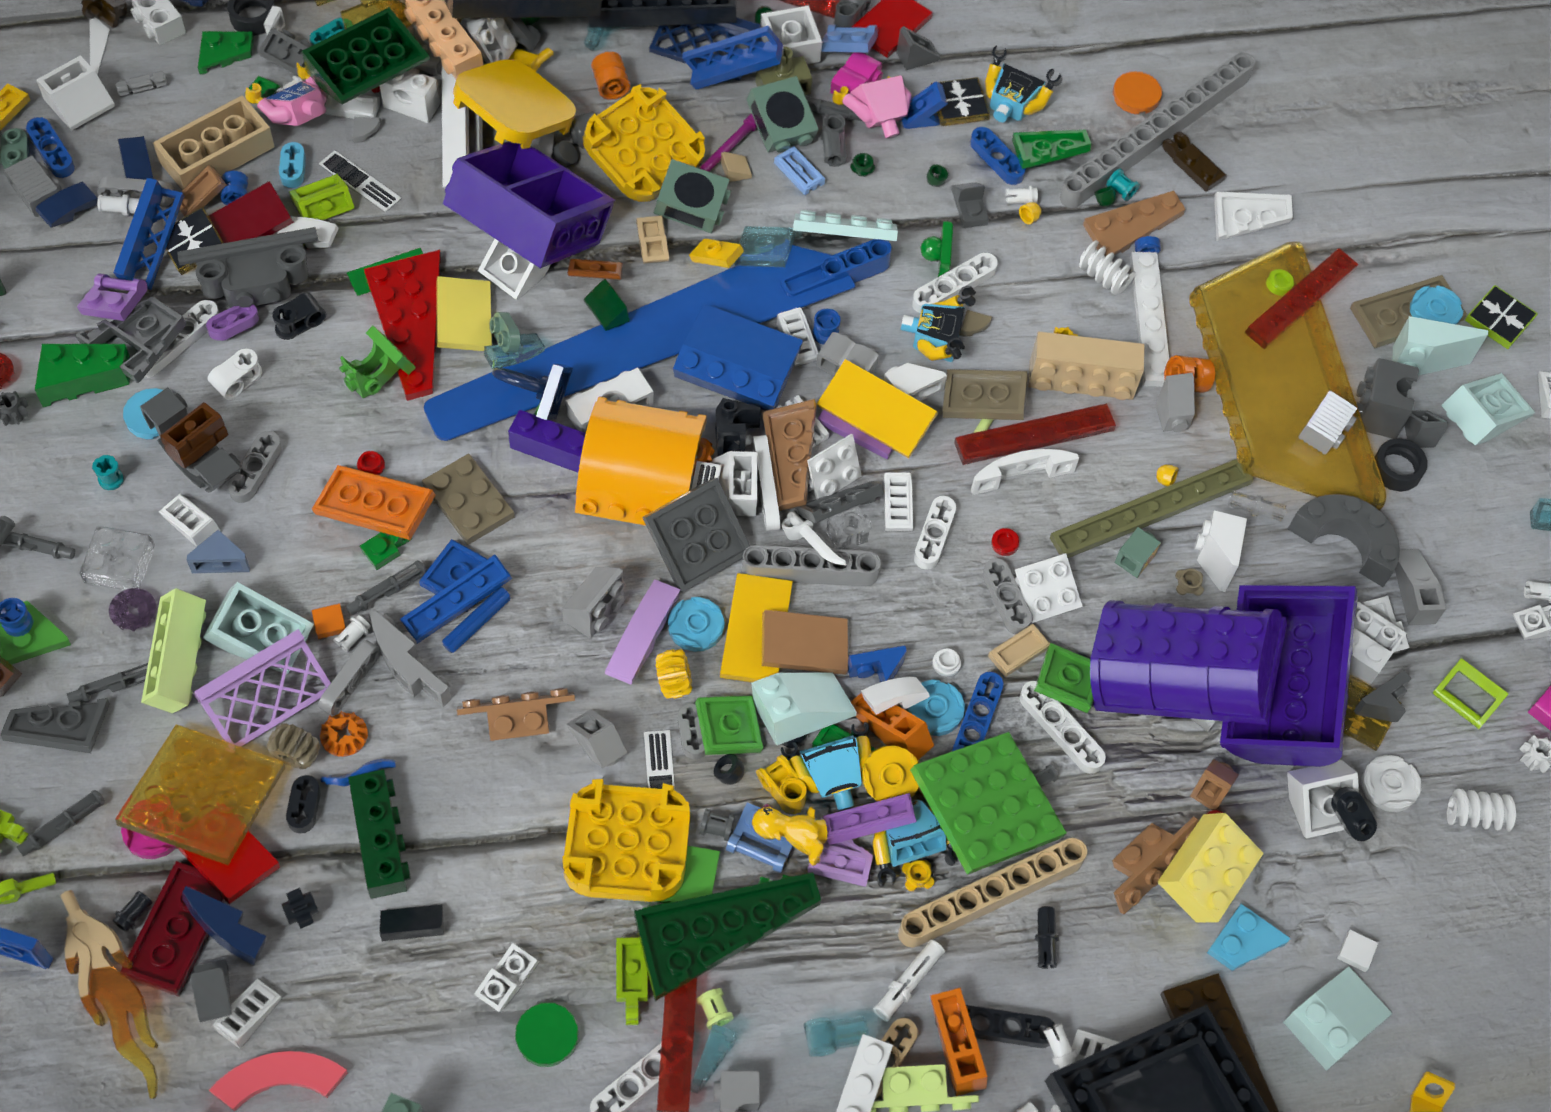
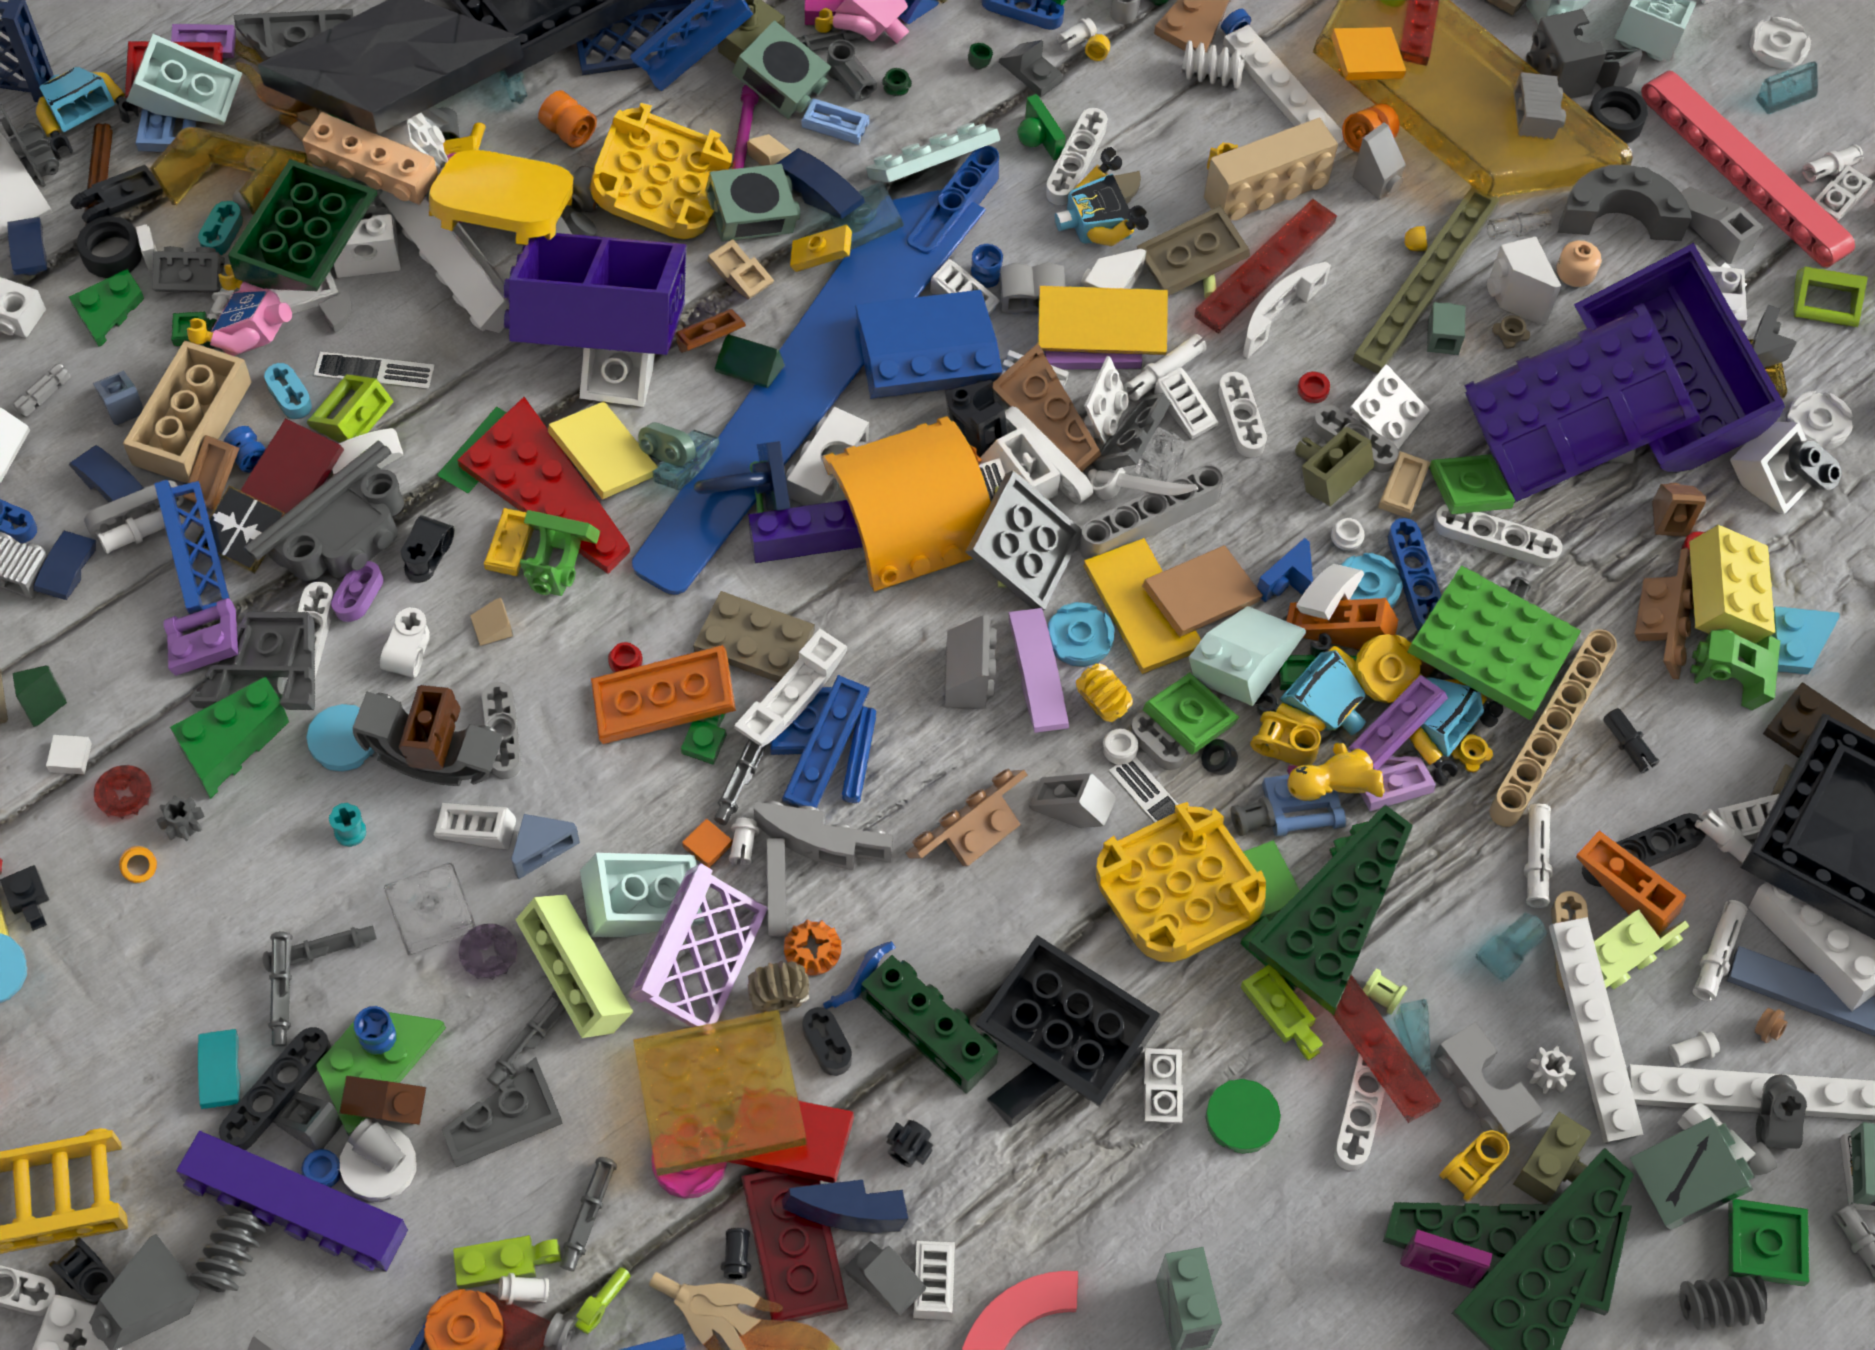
camera: 30 degrees left, 0 degrees up
(180, 111) = (119, 397): none -> sand blue slope
(304, 391) = (491, 623): none -> tan slope
(353, 343) = (508, 543): none -> yellow plate
(460, 550) = (794, 691): none -> white slope
(469, 891) = (1069, 1021): none -> black slope
(662, 719) = (1120, 746): none -> white tile
(748, 207) = (820, 184): none -> dark blue slope
(913, 466) = (1164, 366): none -> white pin
(972, 606) = (1335, 466): none -> olive brick
(1182, 949) = (1719, 660): none -> bright green tile
(1221, 316) = (1368, 53): none -> light orange tile
(1279, 559) = (1578, 263): none -> light nougat head
(1478, 562) = (1748, 169): none -> coral beam

